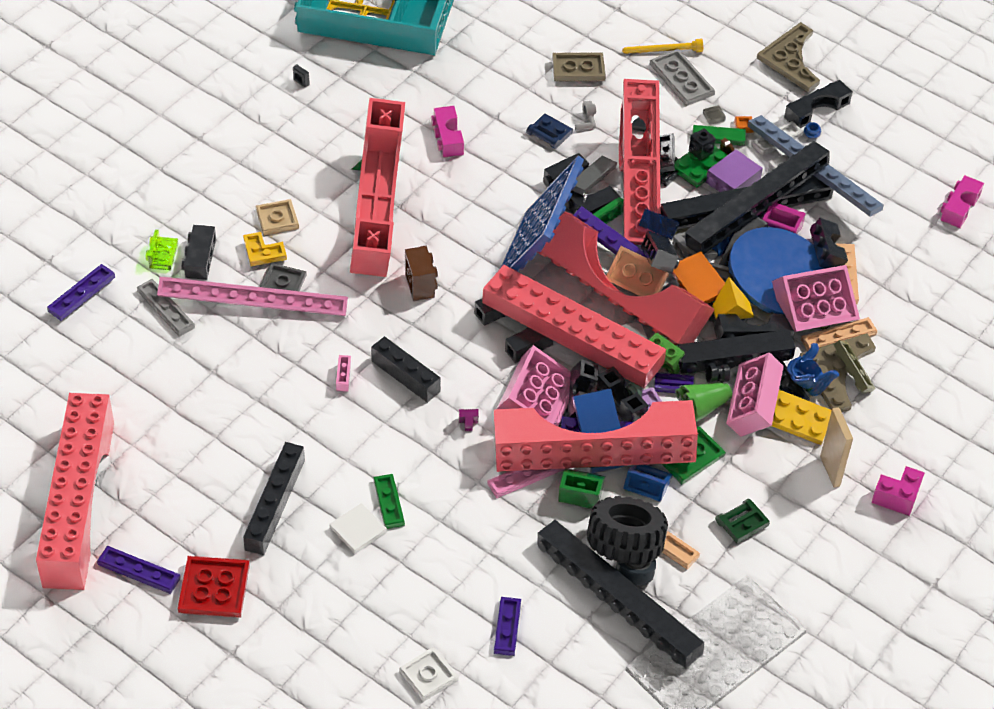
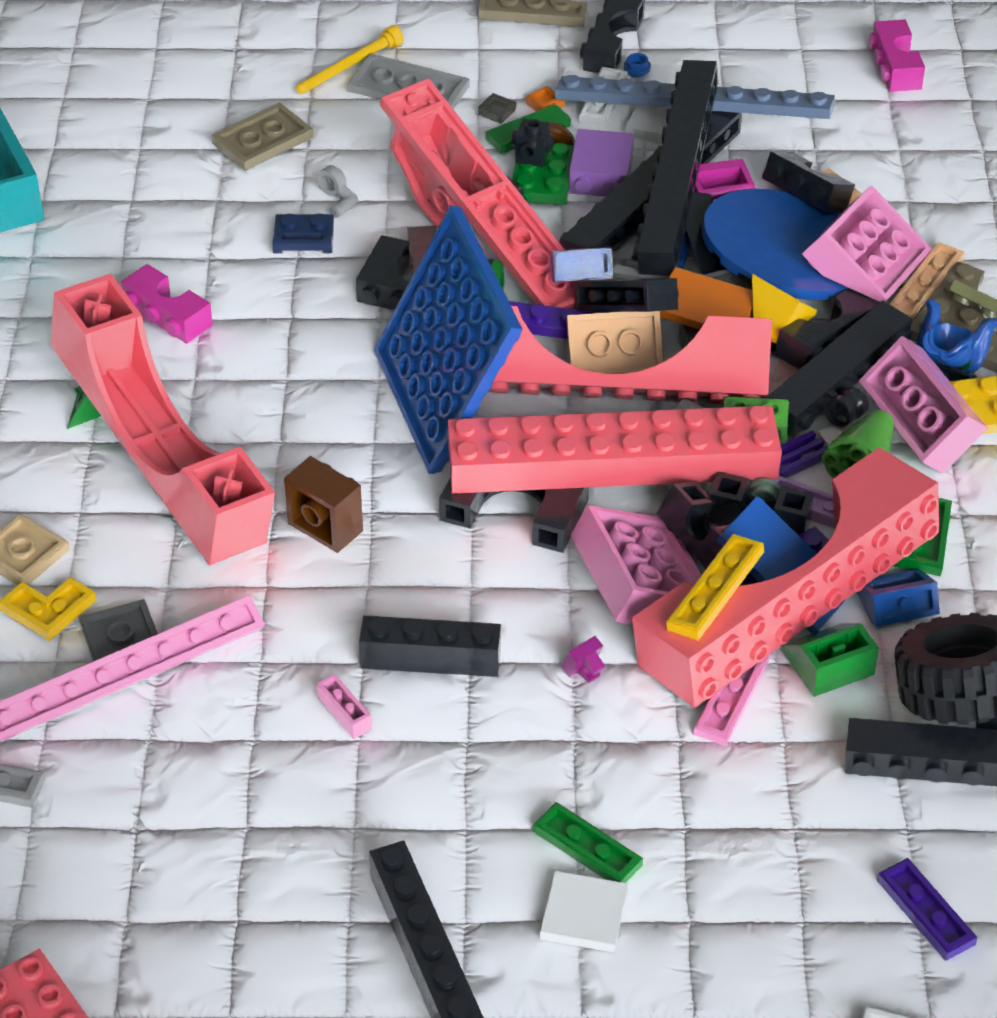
camera: 35 degrees left, 5 degrees down
(542, 418) = (715, 587): none -> yellow tile

